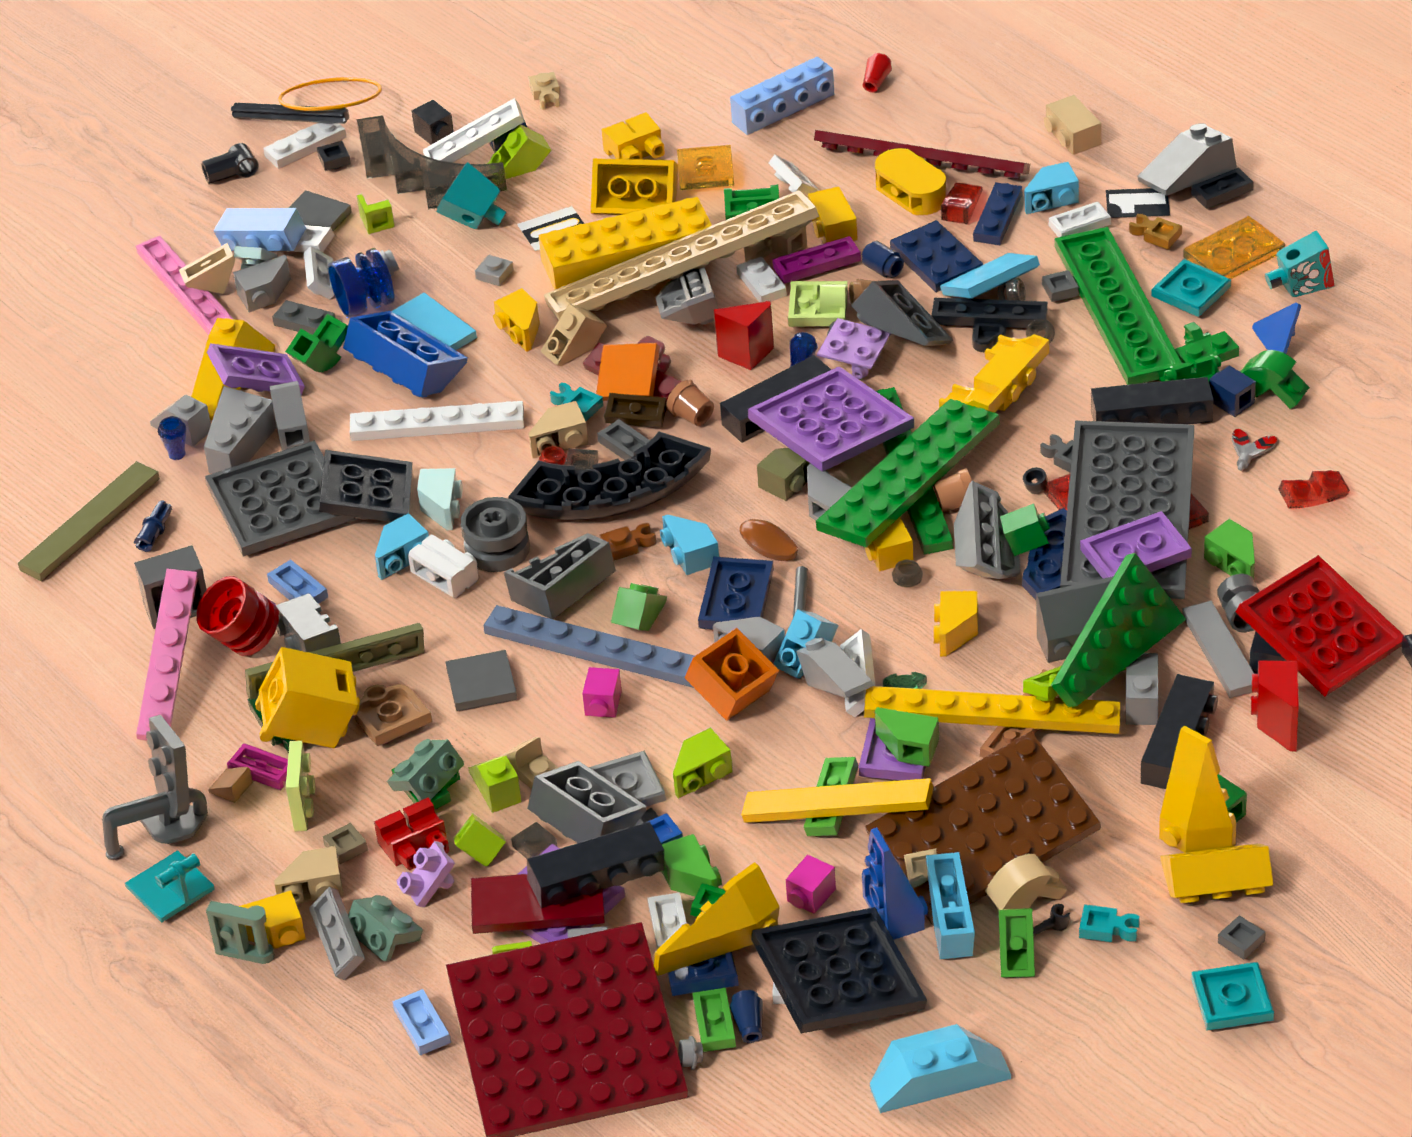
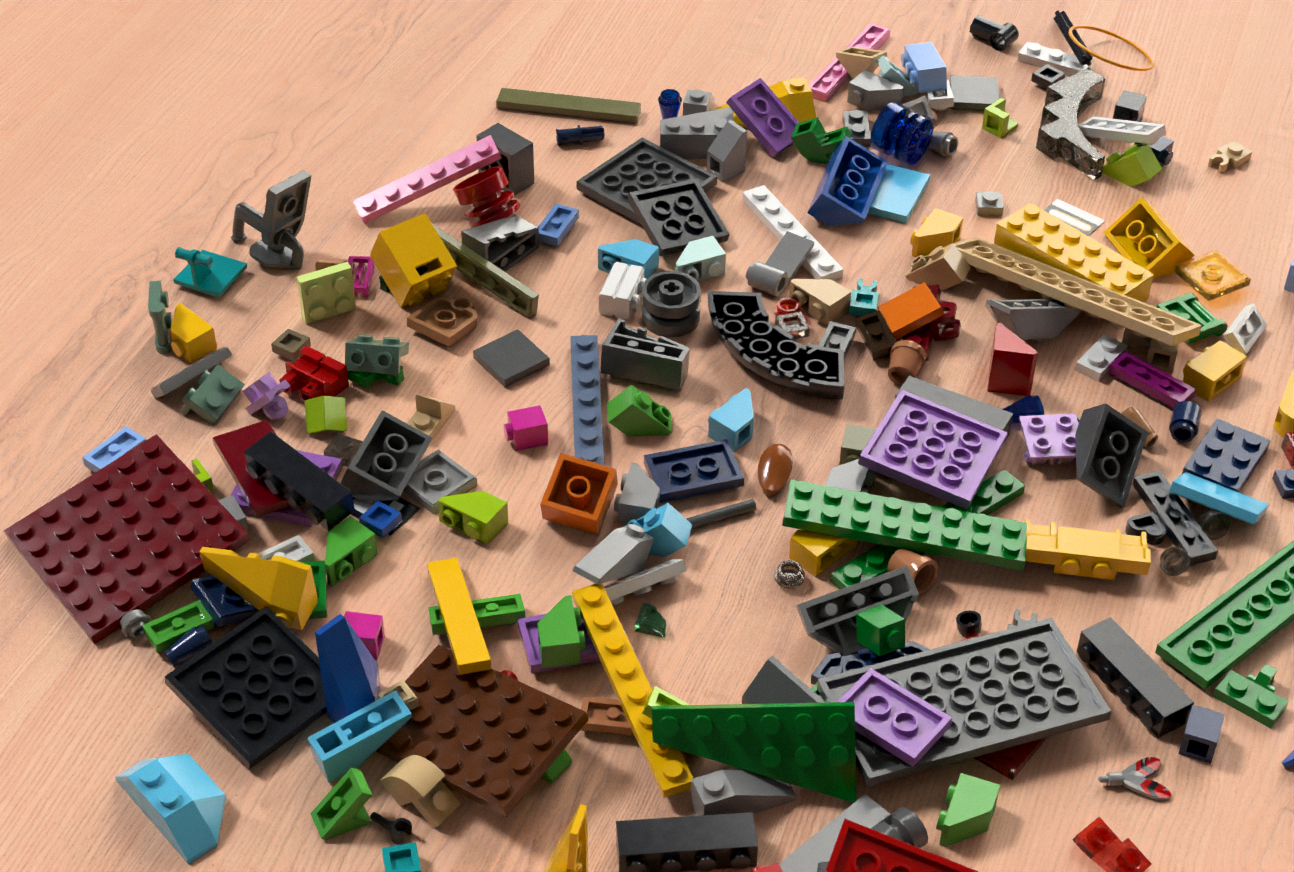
camera: 60 degrees right, 0 degrees up
(311, 875) = (245, 339): tan slope -> none
(471, 199) = (1048, 156): teal torso -> none
(486, 441) = (781, 265): none -> light grey door
(497, 783) = (394, 398): lime slope -> none
(626, 542) = (719, 383): dark orange plate -> none
(633, 139) = (1205, 222): yellow hips -> none
(817, 303) = (1093, 392): yellowish green plate -> none
(957, 620) = (743, 626): yellow slope -> none
(1060, 285) = (1251, 554): dark grey plate -> none
(1202, 367) = (1208, 697): green hinge -> none
(1274, 371) = (1244, 761): green brick -> none

